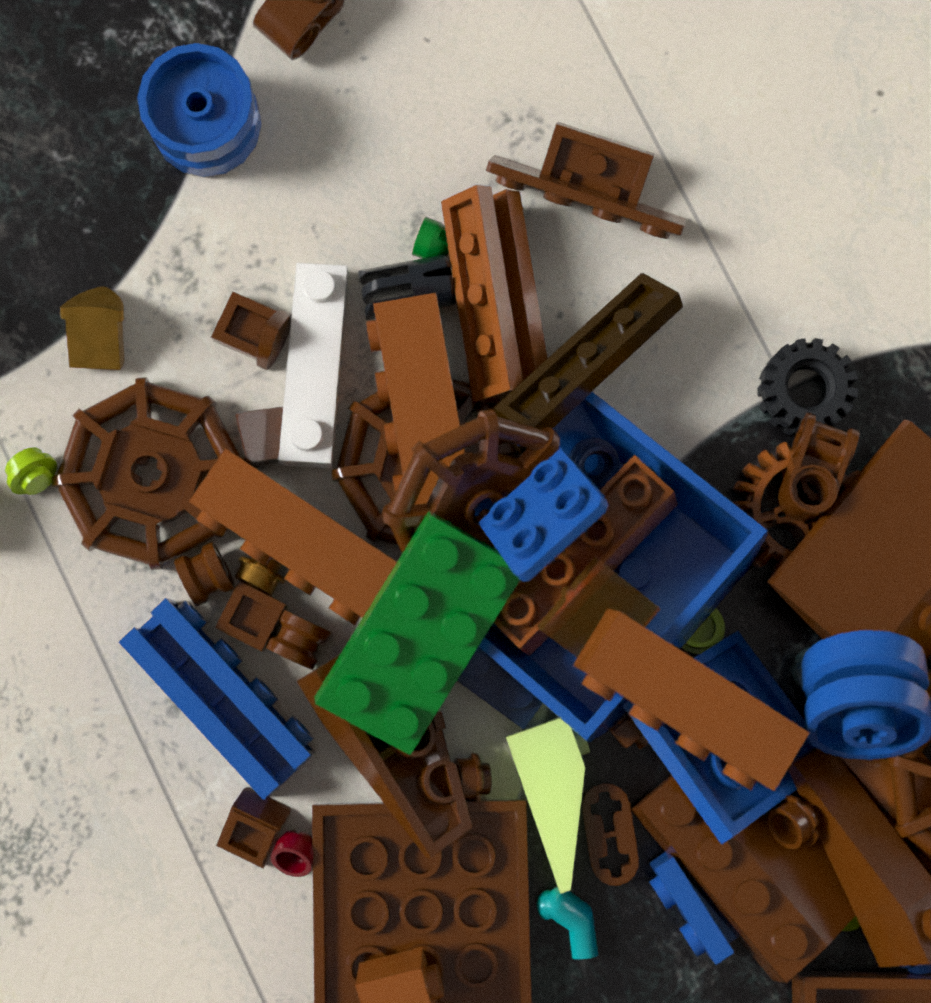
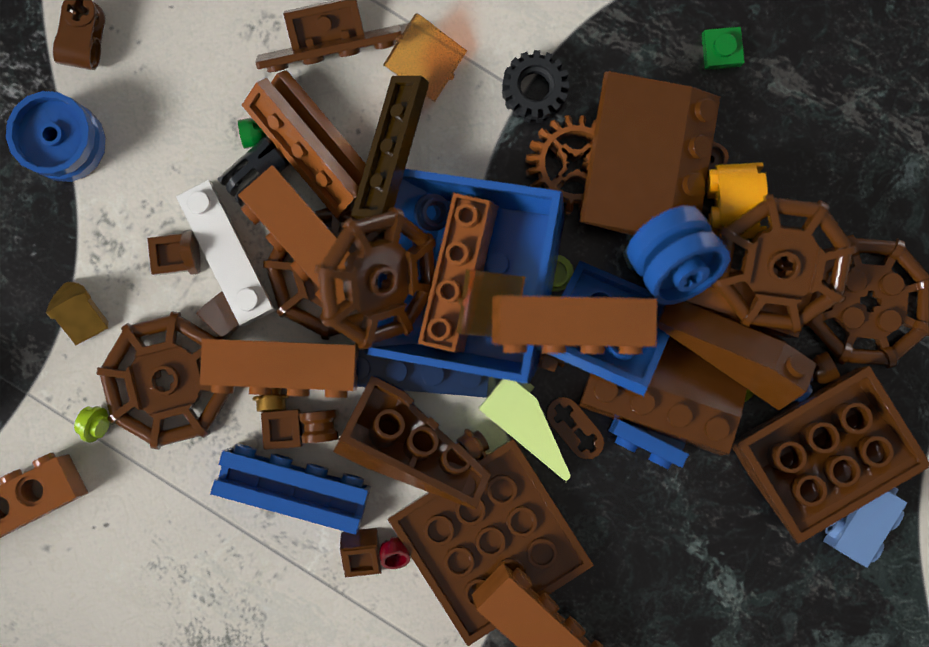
camera: 30 degrees left, 5 degrees up
(204, 574) = (237, 421): reddish brown wheel -> none
(418, 634) = (388, 379): green plate -> none
(543, 515) = (419, 264): blue bracket -> none
(573, 915) = (582, 488): teal arm -> none
(699, 268) = (425, 52): none -> clear orange piece
(794, 823) = (679, 356): reddish brown plate -> none
(820, 458) = (568, 127): reddish brown piece -> none

